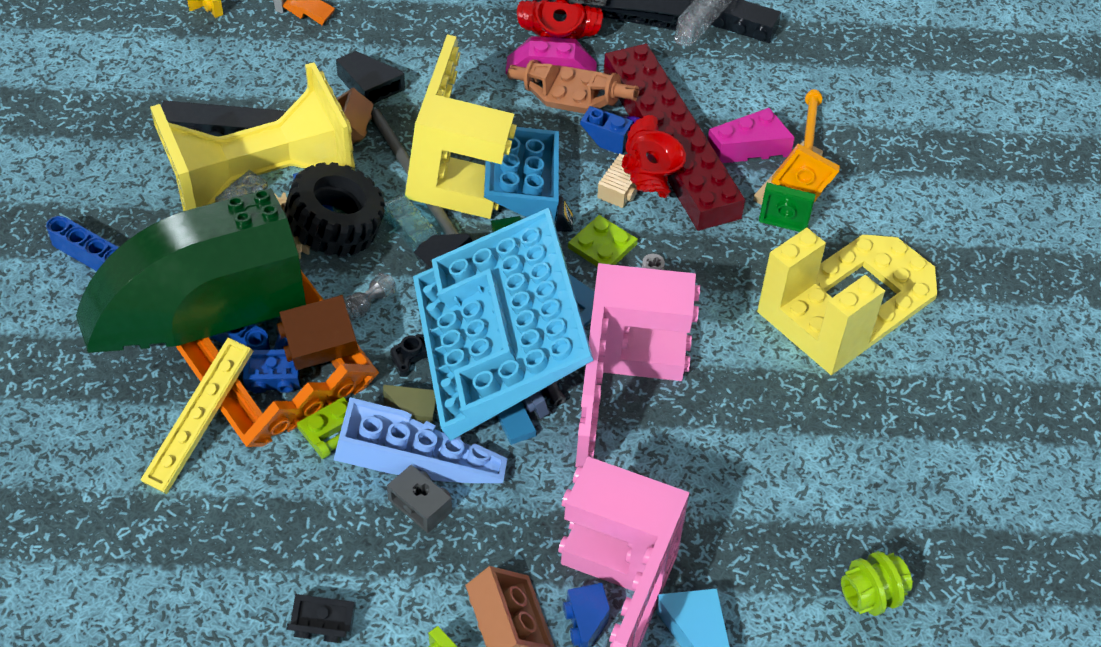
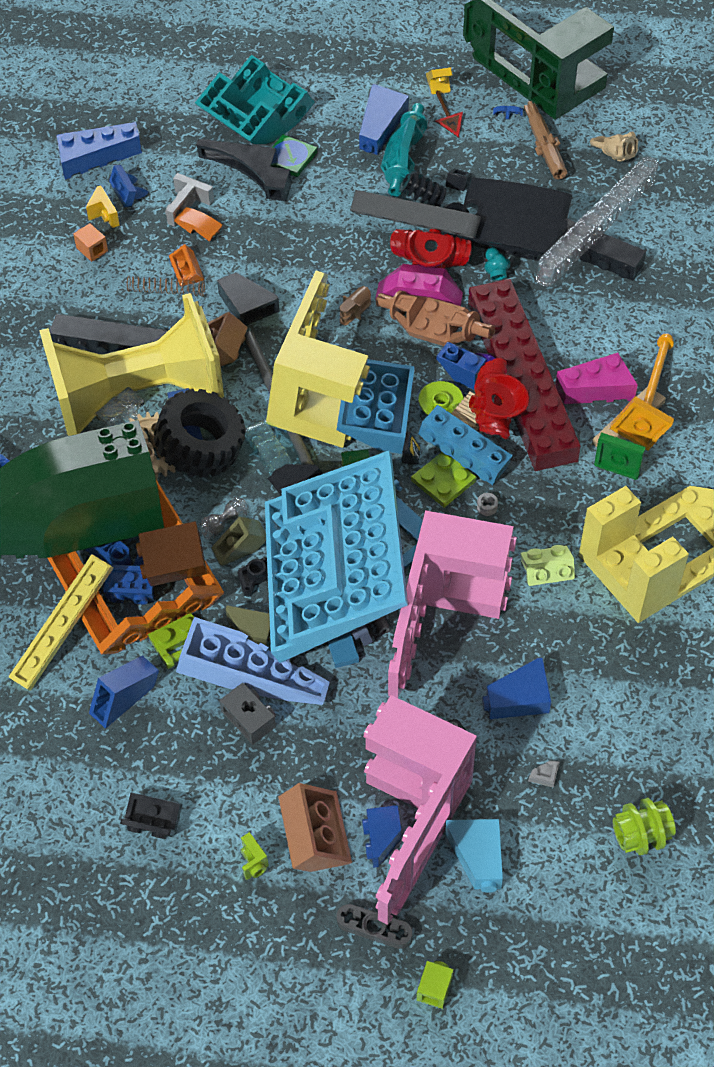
camera: 10 degrees right, 5 degrees up
(194, 30) = (90, 242): none -> orange brick
(273, 483) = (122, 689): none -> blue slope
(299, 49) = (186, 265): none -> orange slope
(320, 69) = (165, 286): none -> medium nougat piece
(389, 318) = (240, 540): none -> olive slope
(485, 78) = (354, 305): none -> medium nougat arm
(588, 164) = (437, 393): none -> lime dish
(622, 206) = (464, 444): none -> dark azure brick
(628, 32) = (496, 264): none -> teal animal
(717, 455) = (519, 693): none -> blue slope
(728, 322) = (548, 565): none -> yellowish green bracket
(757, 538) = (545, 774): none -> light grey tile

